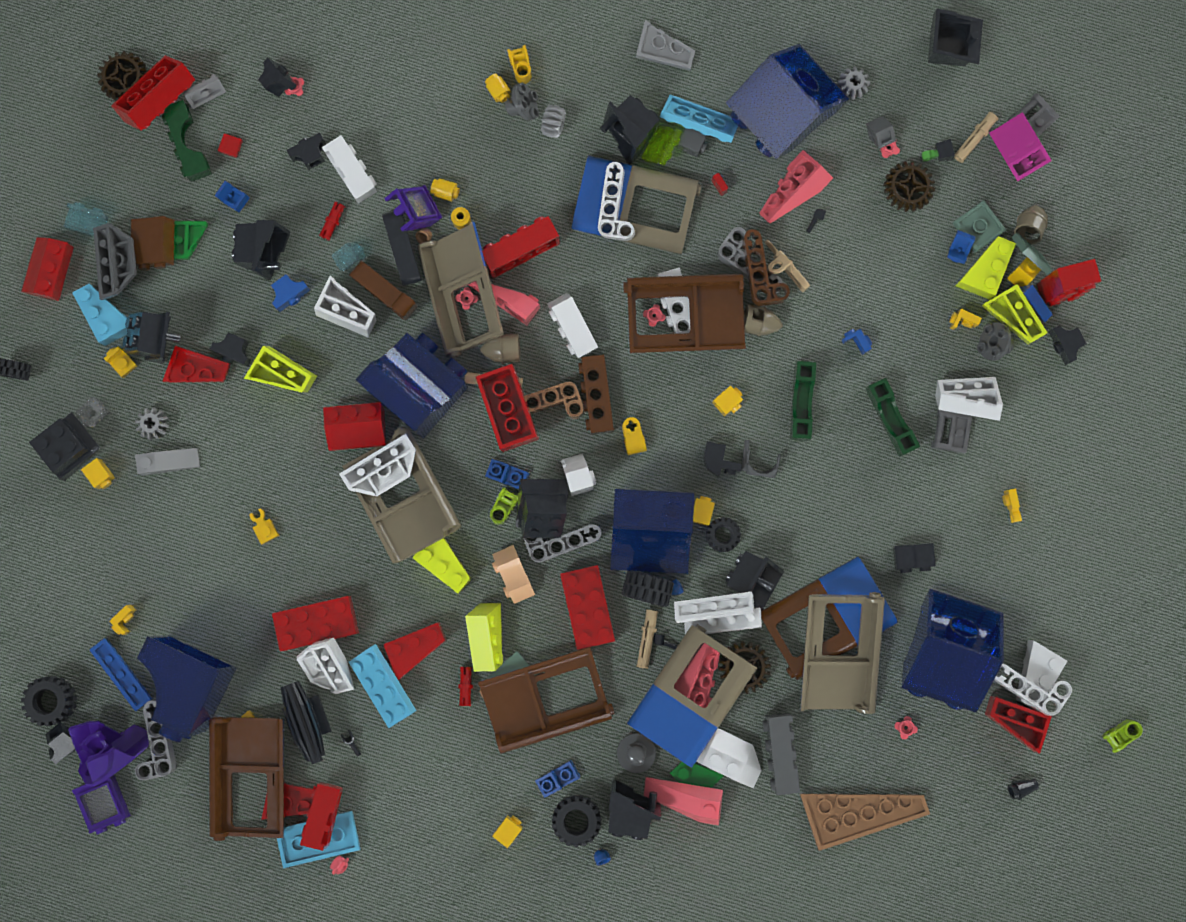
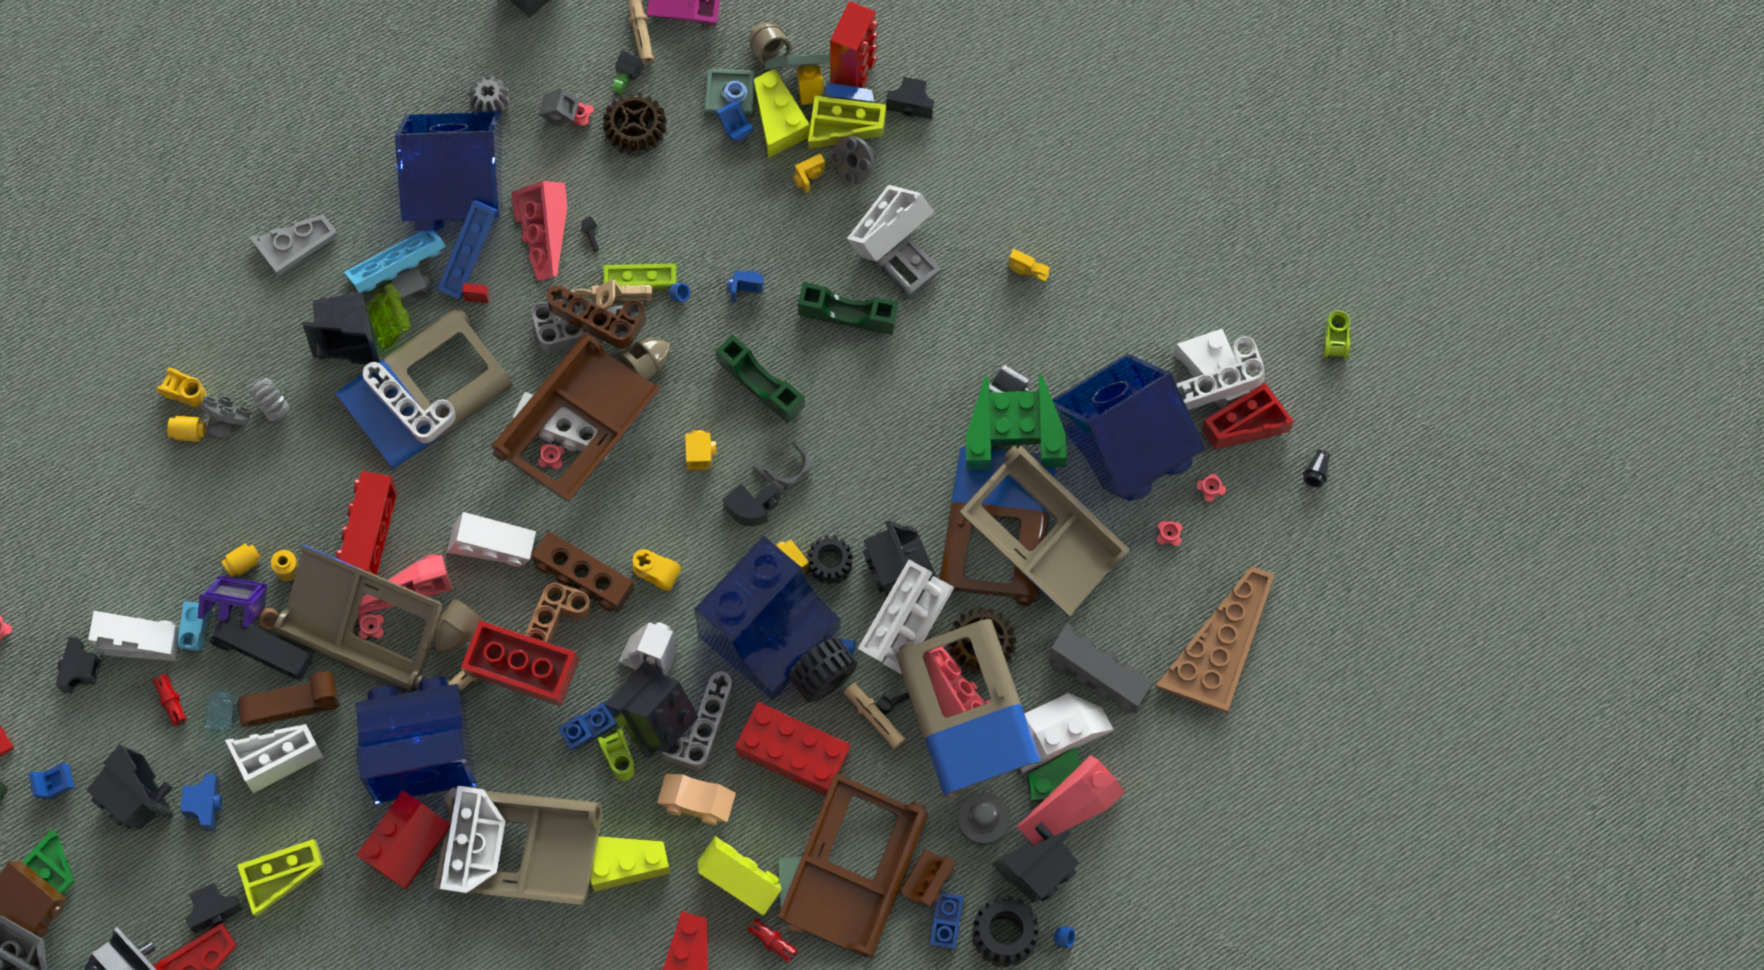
camera: 55 degrees left, 15 degrees down
(376, 199) = (192, 629): none -> medium azure leg
(572, 749) = (927, 878): none -> reddish brown bracket
(741, 156) = (467, 249): none -> blue plate
(812, 273) = (656, 275): none -> lime tile
(820, 305) = (679, 292): none -> blue hinge
(900, 580) = (1015, 420): none -> green wedge
(962, 730) = (1211, 480): none -> coral plate
(986, 231) = (735, 86): none -> light blue plate

